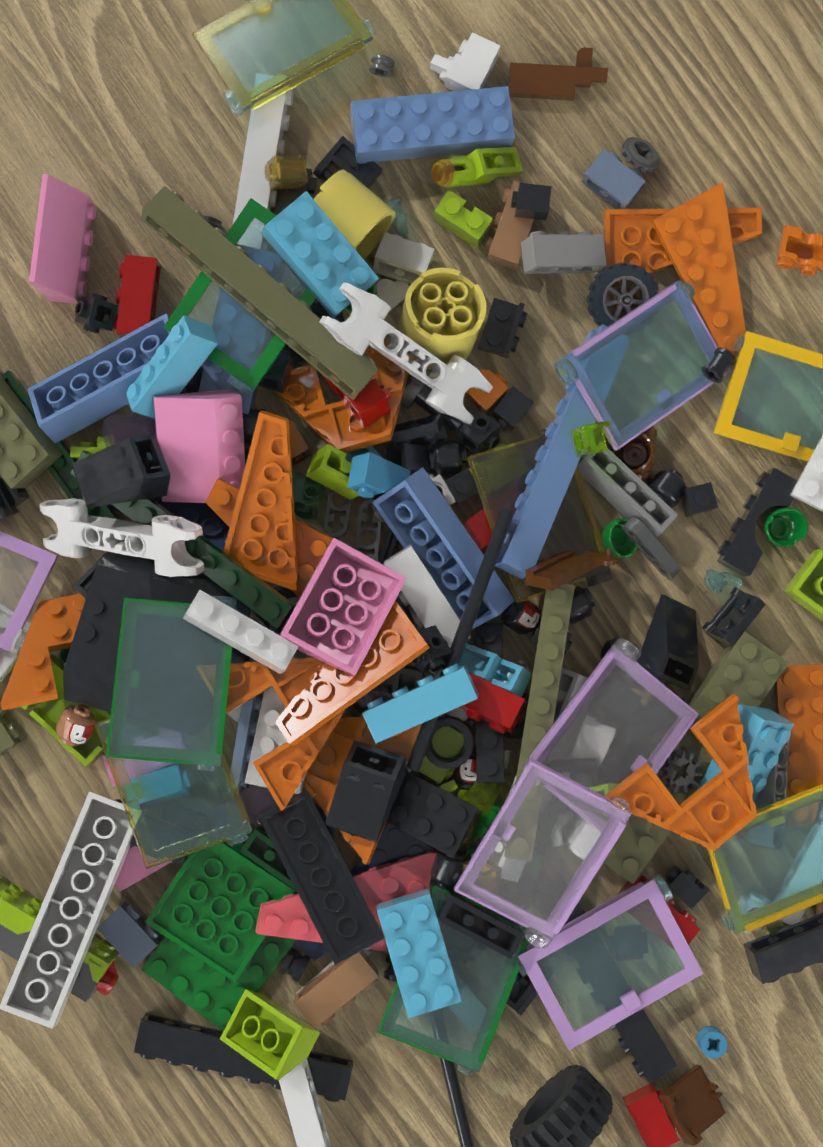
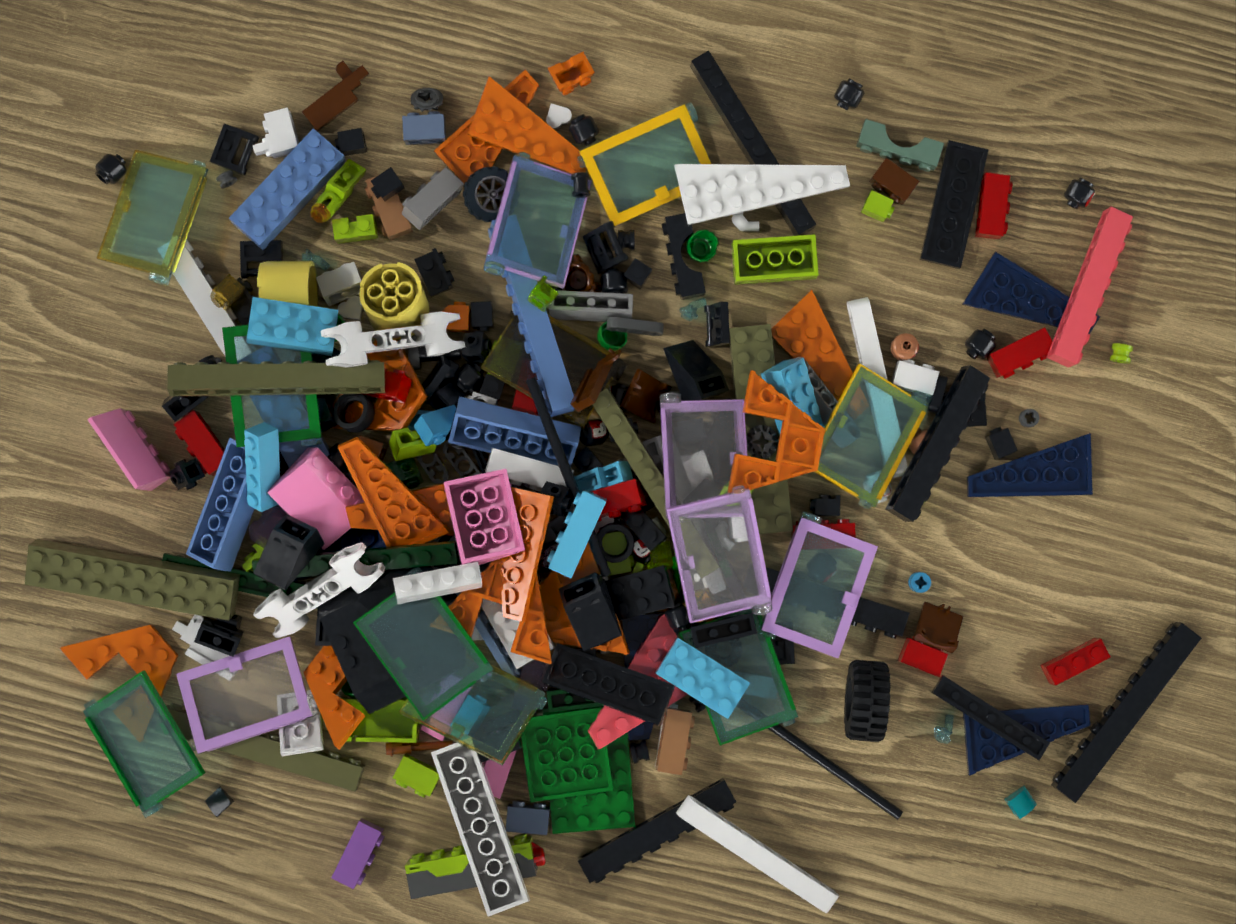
camera: 45 degrees left, 0 degrees up
(60, 797) = (416, 775): none -> lime brick
(64, 755) = (407, 748): none -> dark orange pin
(75, 725) = (389, 723): nougat head -> none
(147, 242) = (180, 405): none -> black brick
(269, 1034) = (658, 802): lime slope -> none
(312, 409) = (365, 419): none -> black tyre
(410, 36) = (227, 148): none -> black plate
(532, 133) = (351, 142): none -> black brick
(601, 623) = (643, 395): none -> reddish brown piece
(682, 444) = (600, 250): none -> black plate
(715, 457) = (627, 239): none -> black wheel
(753, 280) = (557, 116): none -> white tile
(767, 315) = (583, 129): none -> black head

